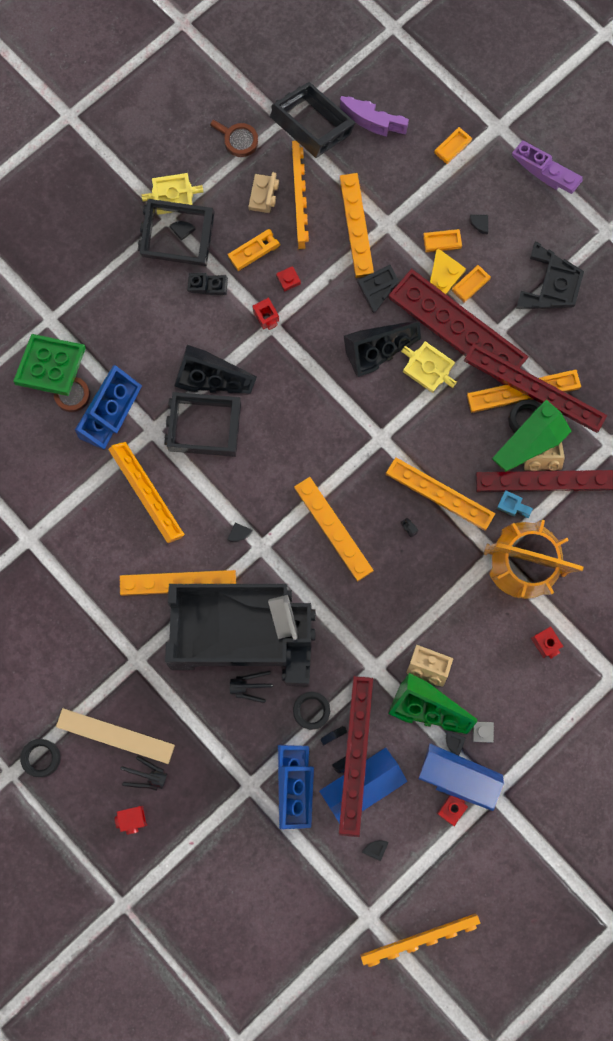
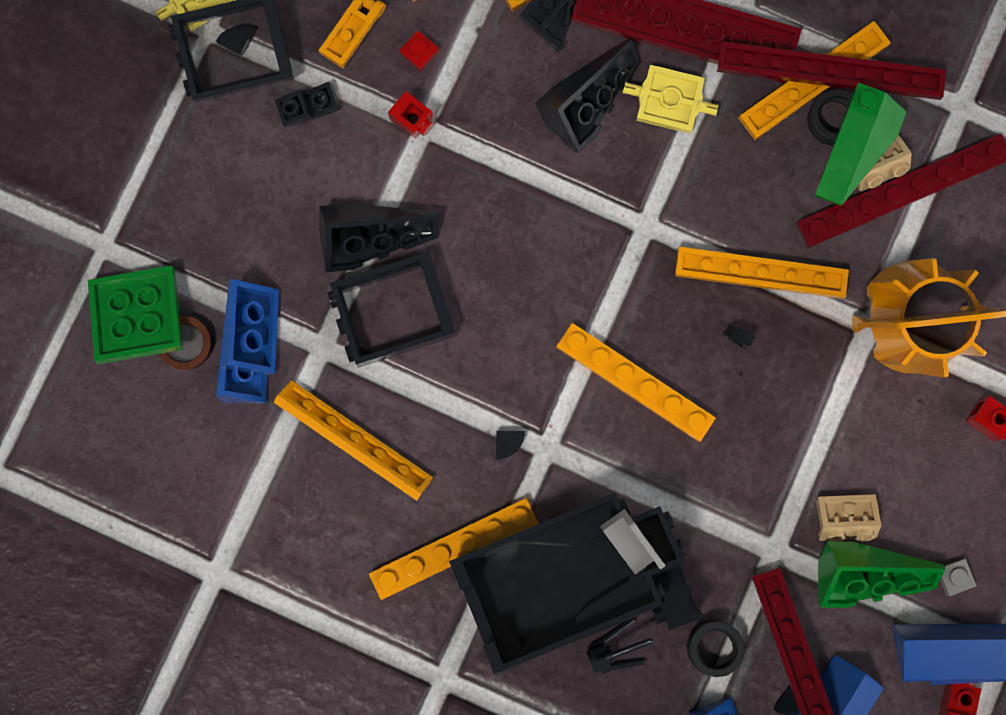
camera: 30 degrees left, 5 degrees up
(333, 735) = (762, 668): black tile -> none
(454, 742) = (924, 607): black tile -> none
(511, 504) = (865, 247): dark azure plate -> none

